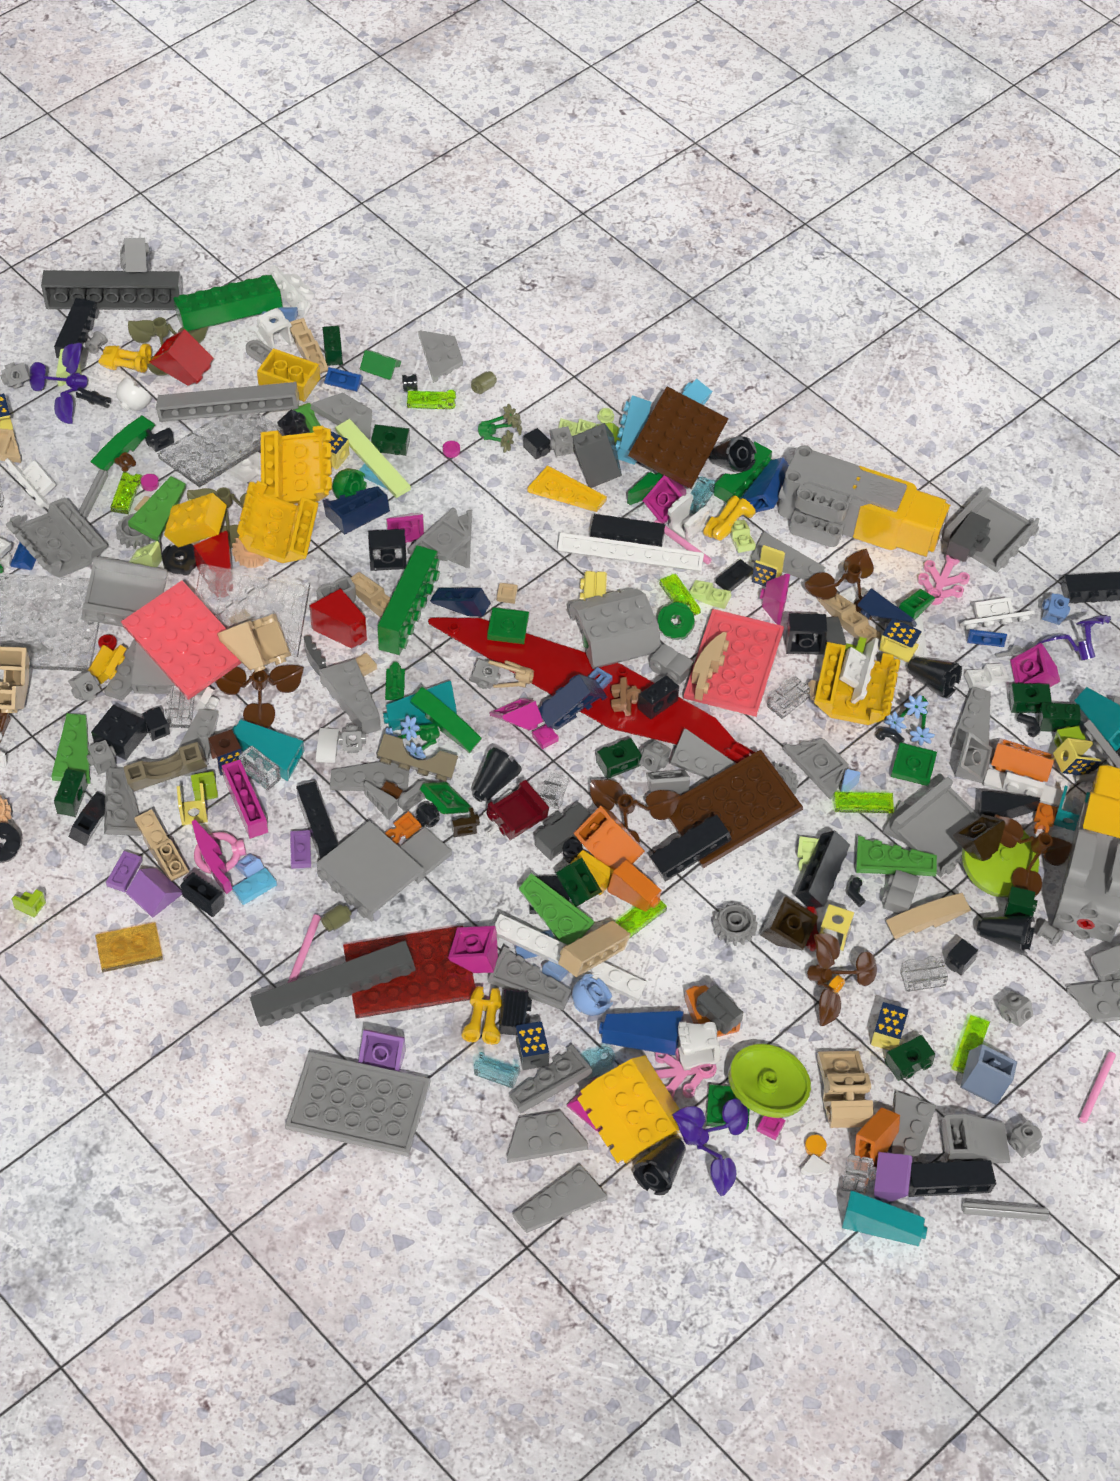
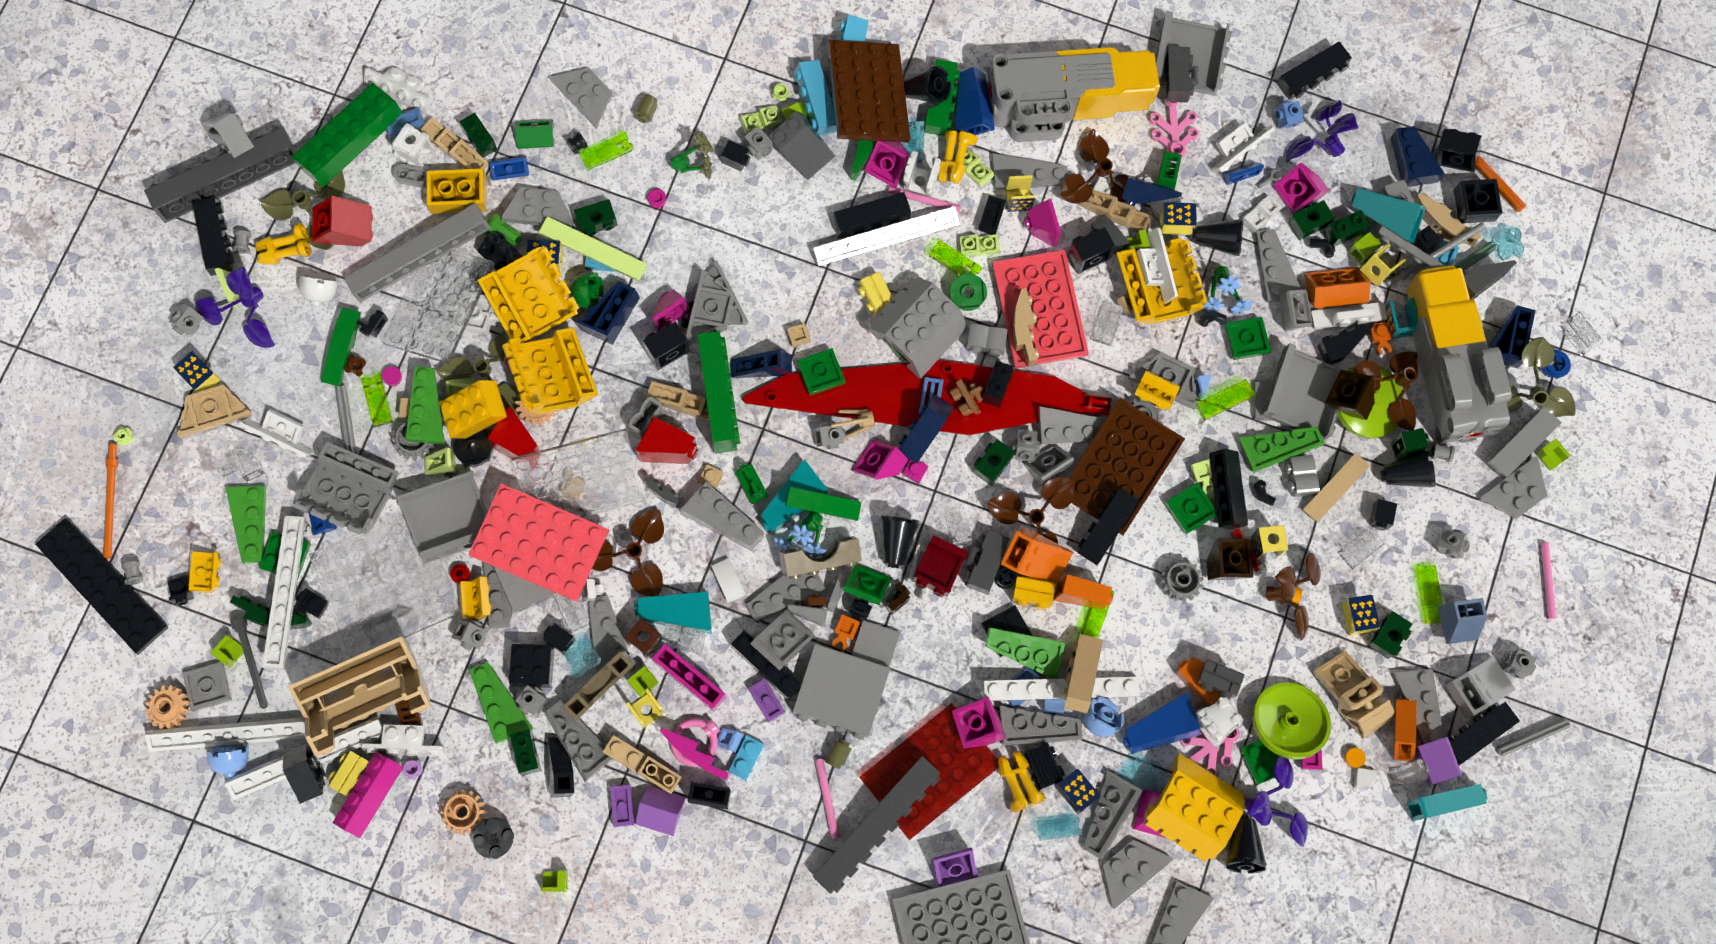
camera: 30 degrees left, 20 degrees up
(93, 397) = (278, 307): black pin -> none
(128, 947) = (671, 878): clear yellow tile -> none
(165, 746) = (580, 656): none -> clear light blue plate
(257, 642) = (606, 516): tan windscreen -> none
(343, 804) = (782, 639): none -> light grey plate
(352, 746) = (749, 565): light grey brick -> none
(565, 489) = (785, 194): yellow wing -> none
(578, 882) = (1032, 612): dark green brick -> none
(779, 872) = (1191, 508): none -> green plate
(801, 762) = (1157, 390): none -> yellow bracket

